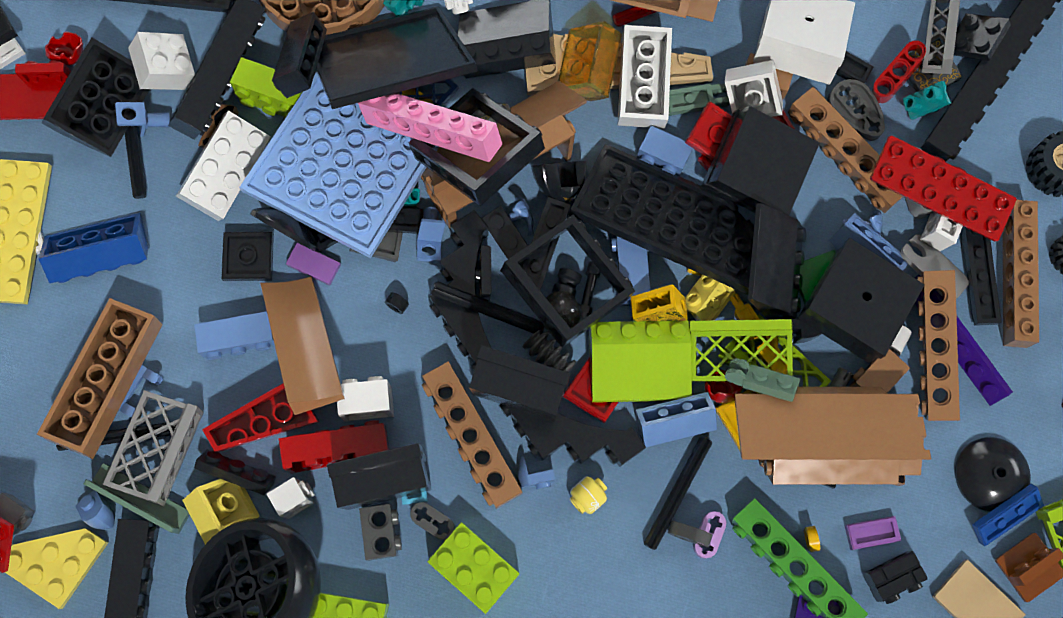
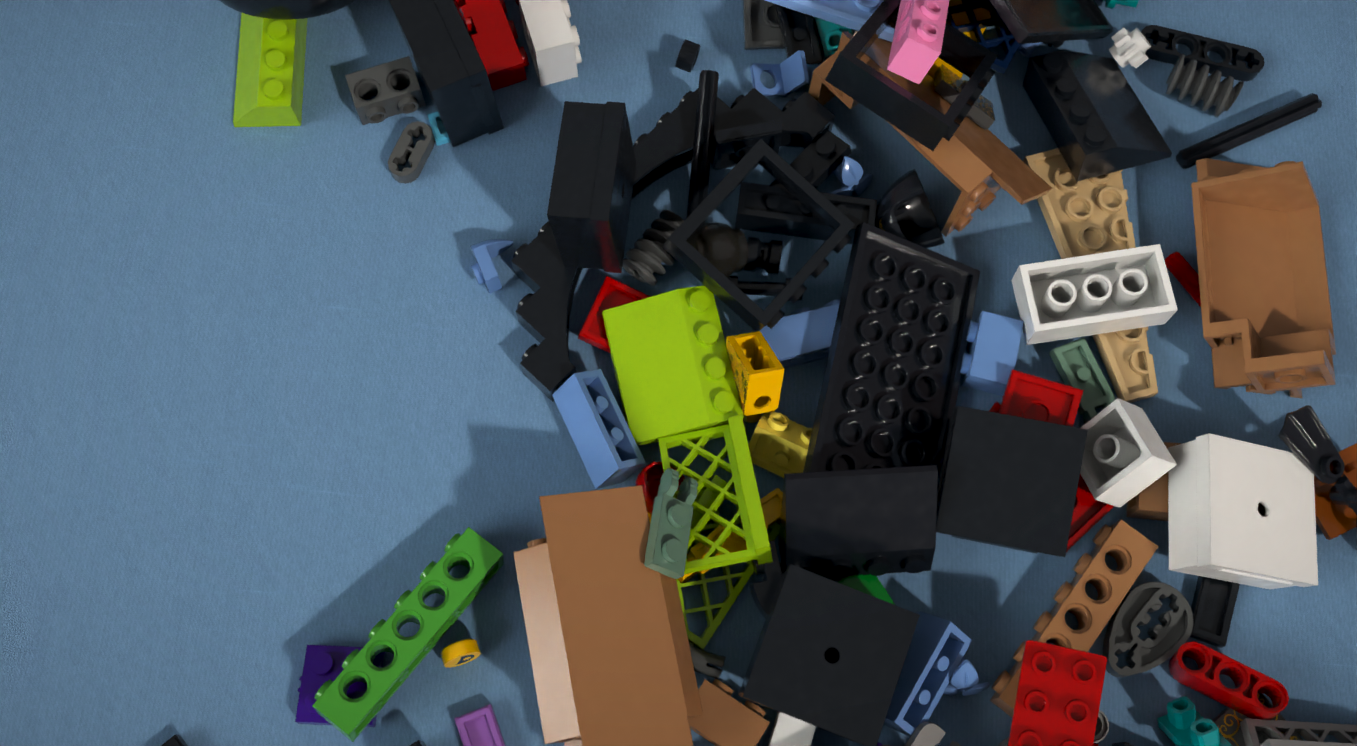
camera: 80 degrees right, 5 degrees down
(445, 377) = (506, 175): medium nougat brick -> none
(473, 568) = (354, 207): lime brick -> none
(588, 495) = (473, 331): light yellow head -> none
(590, 60) = (1092, 222): clear yellow slope -> none
(677, 493) = (499, 454): black axle -> none
(690, 534) = (438, 473): dark grey beam -> none
(717, 534) = (447, 499): lavender beam -> none

